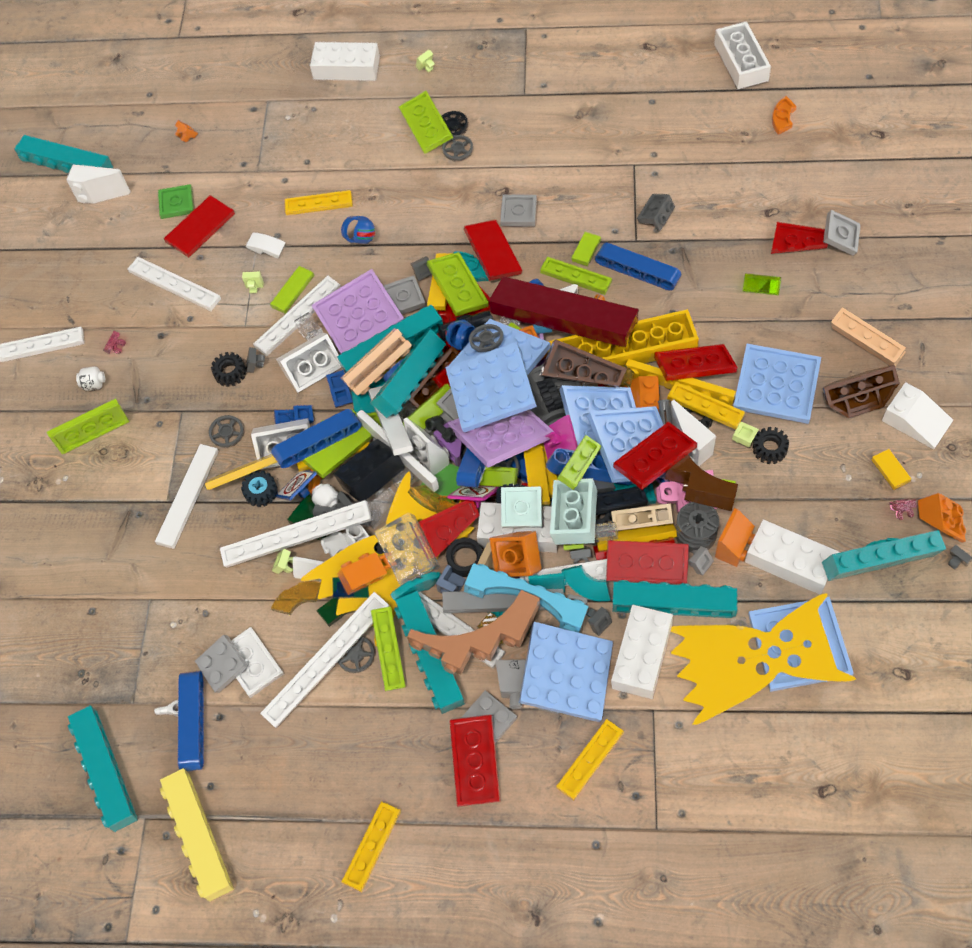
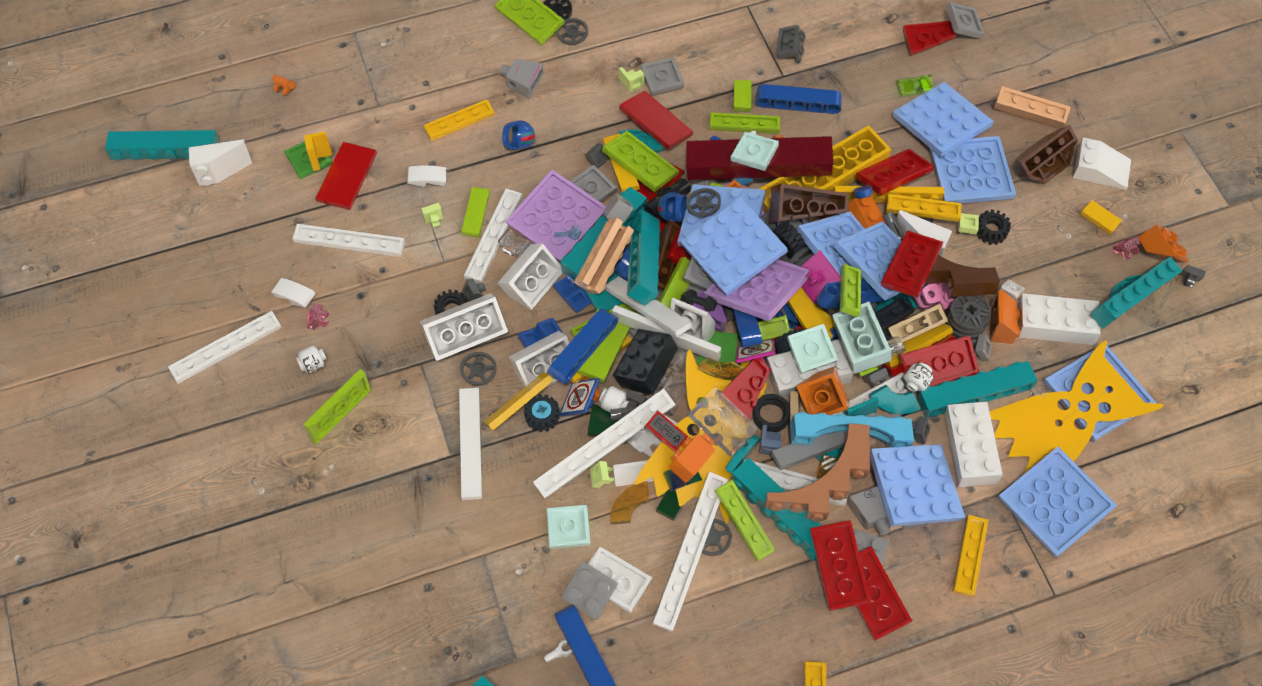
camera: 30 degrees left, 0 degrees up
(105, 316) = (294, 292): none -> white slope
(178, 193) = (317, 147): none -> yellow panel
(225, 389) = (463, 326): none -> white brick
(233, 599) = (568, 526): none -> light aqua tile
(350, 540) = (666, 431): none -> tile
(362, 333) = (573, 234): none -> clear light blue hand
(392, 177) = (523, 76): none -> light grey torso
(408, 322) = (618, 208): none -> light grey panel
(452, 722) = (840, 565): none -> red tile
(490, 207) = (631, 79): none -> yellowish green panel
(558, 302) = (754, 151): none -> light aqua tile
(615, 568) = (918, 377): none -> white head
(650, 372) = (863, 191): none -> blue tile
(700, 737) = (1057, 502): none -> light blue plate
(757, 513) = (1012, 289): none -> white slope
(771, 324) = (942, 119): none -> light blue plate

